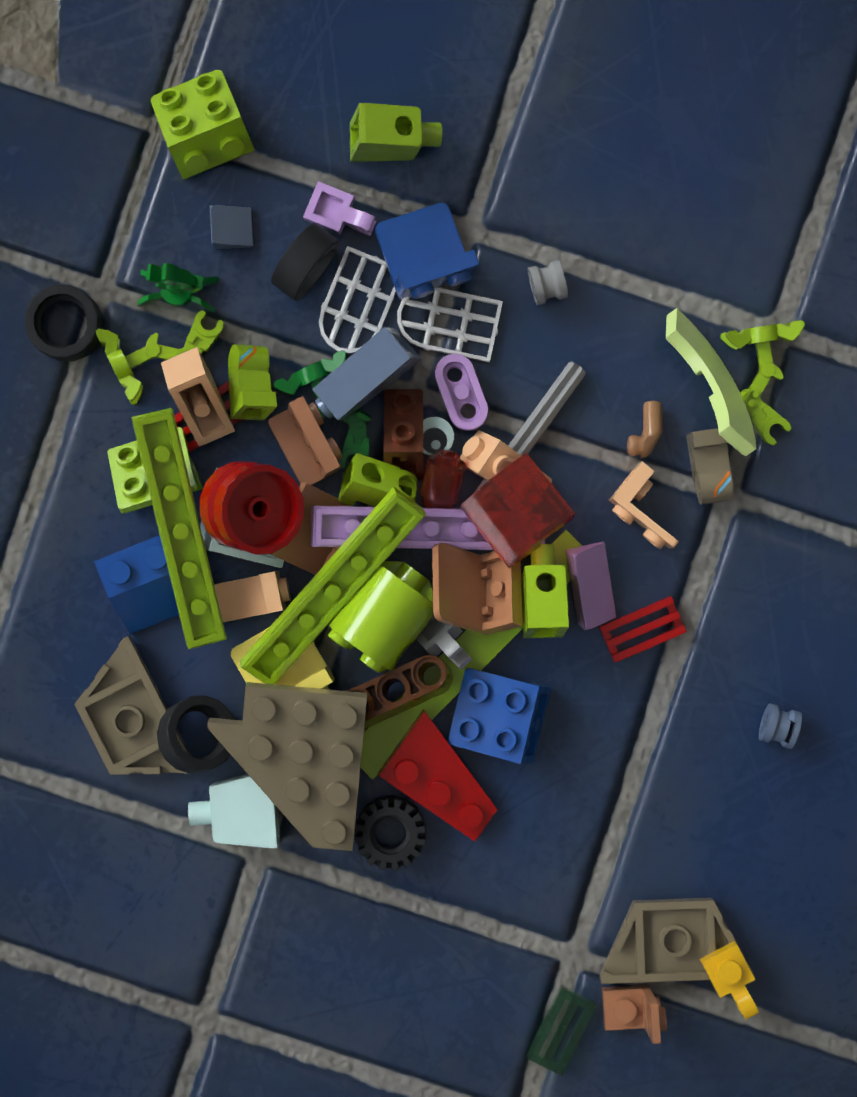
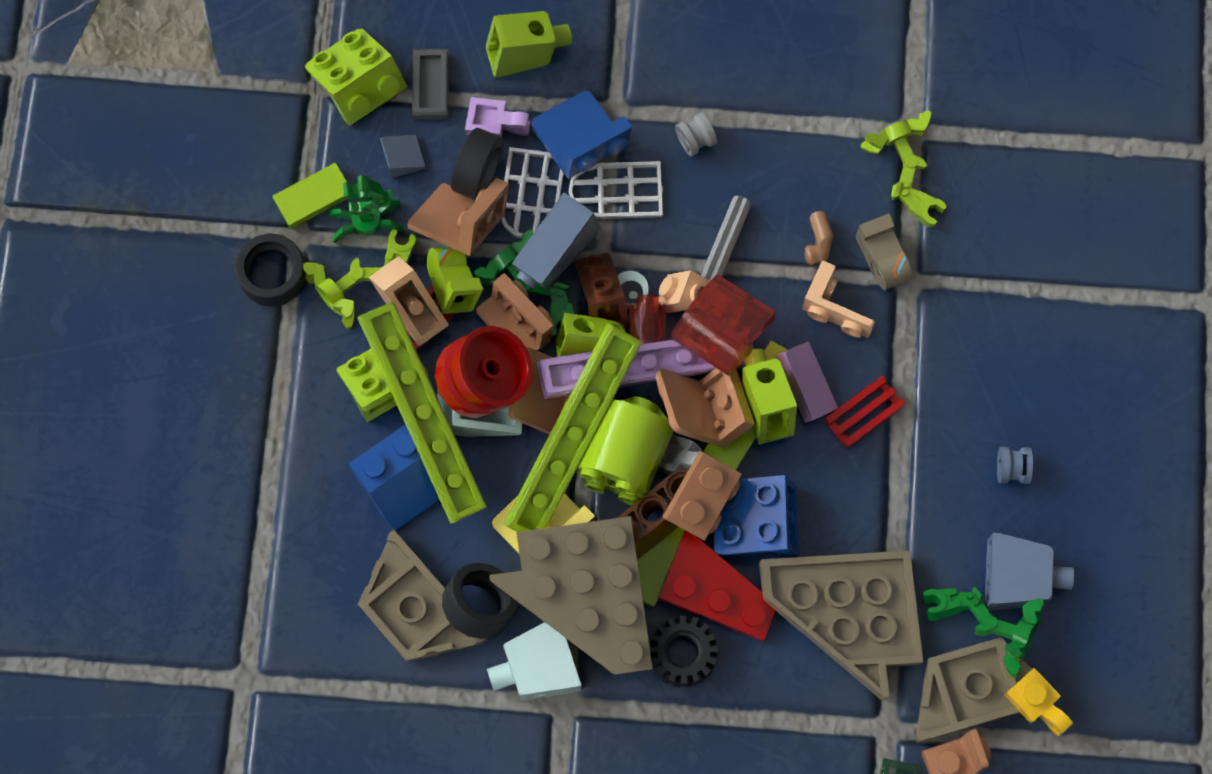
camera: 15 degrees left, 15 degrees down
(126, 249) = (311, 196): none -> lime tile
(252, 596) = (503, 465): light nougat bracket -> none
(271, 319) = (459, 219): none -> nougat bracket
(280, 152) = (430, 84): none -> dark grey tile
(448, 691) = (703, 495): none -> nougat bracket
(464, 392) = (645, 246): lavender plate -> none
(571, 832) = (851, 608): none -> dark tan wing
(677, 850) = (1022, 634): none -> green piece
(727, 402) = (878, 190): yellowish green tile -> none
(753, 841) = (1021, 572): none -> sand blue torso

